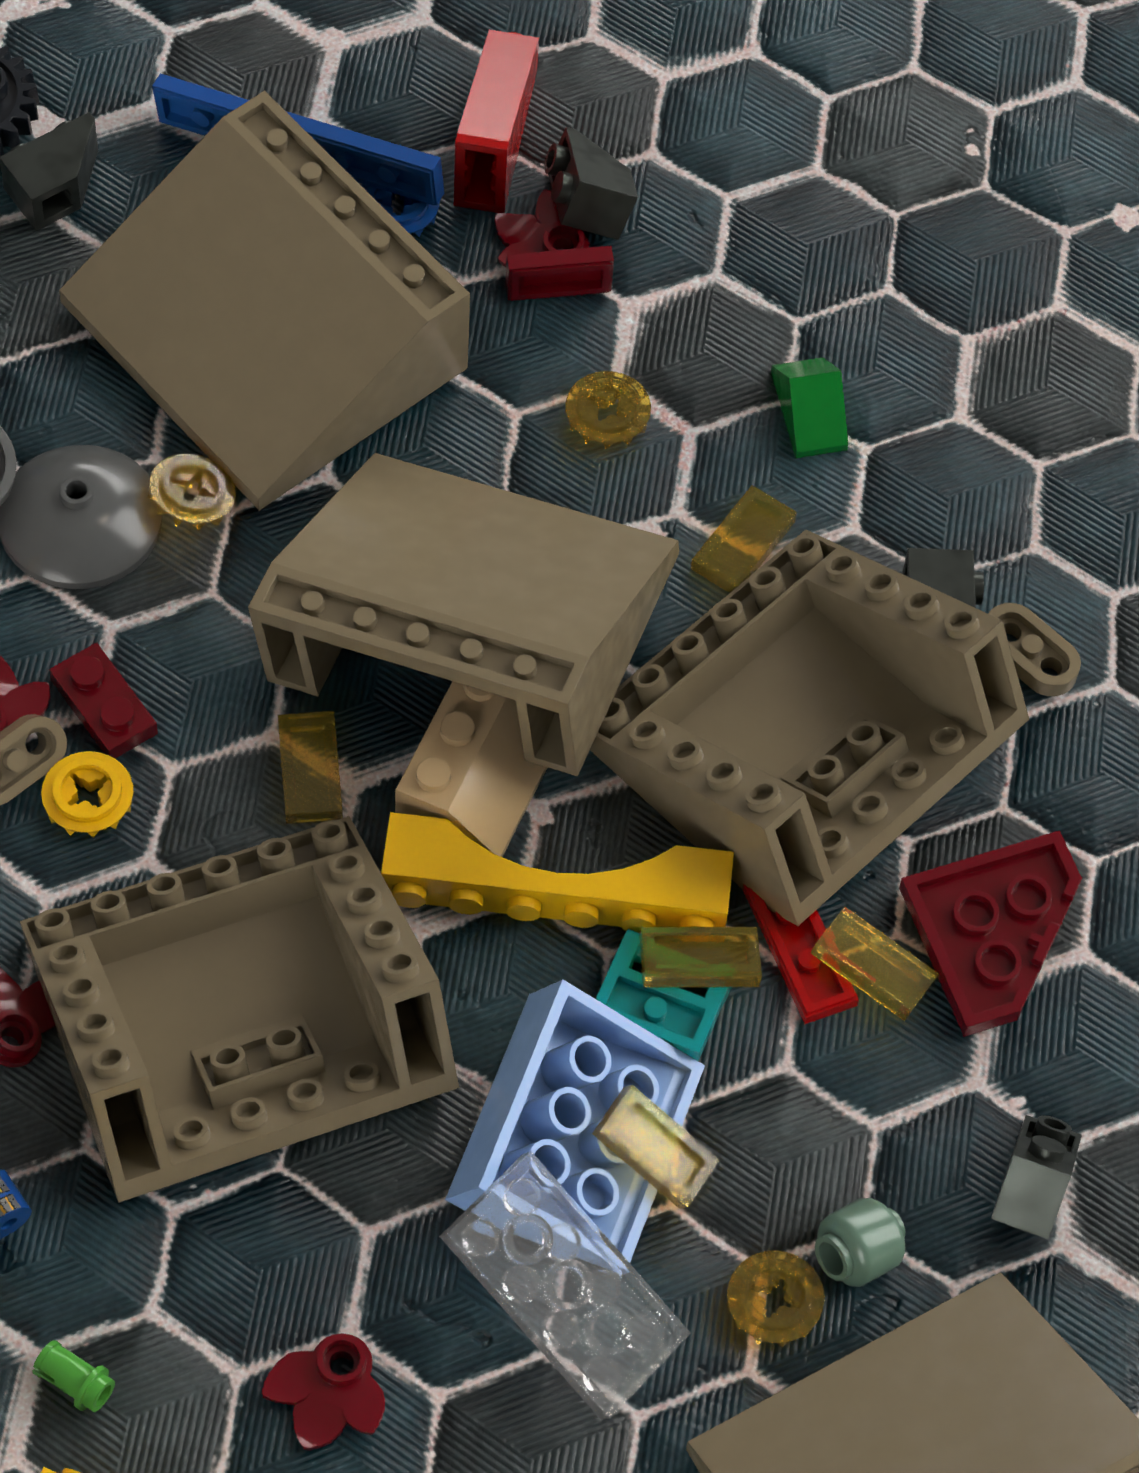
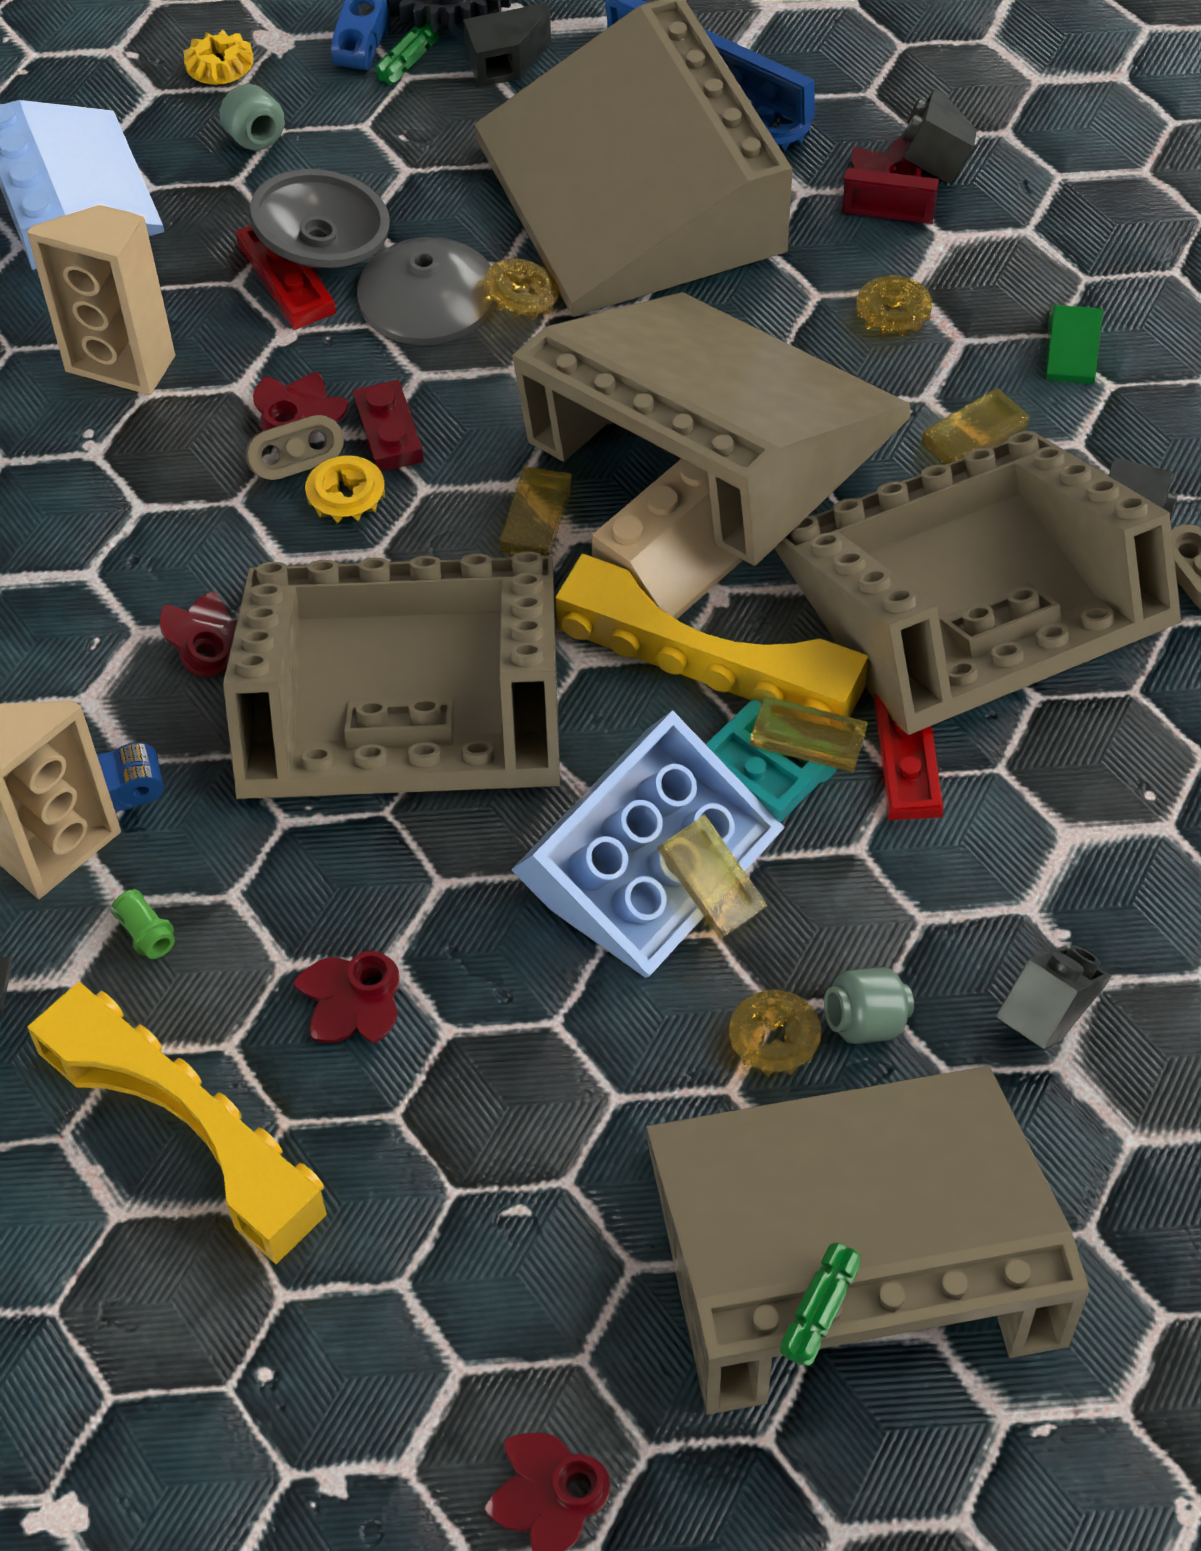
camera: 25 degrees right, 5 degrees down
(494, 121) = (875, 75): slope -> none
(565, 1285) = (583, 961): clear plate -> none
(874, 963) = (967, 782): clear yellow tile -> none
(993, 924) = (1089, 779): dark red plate -> none

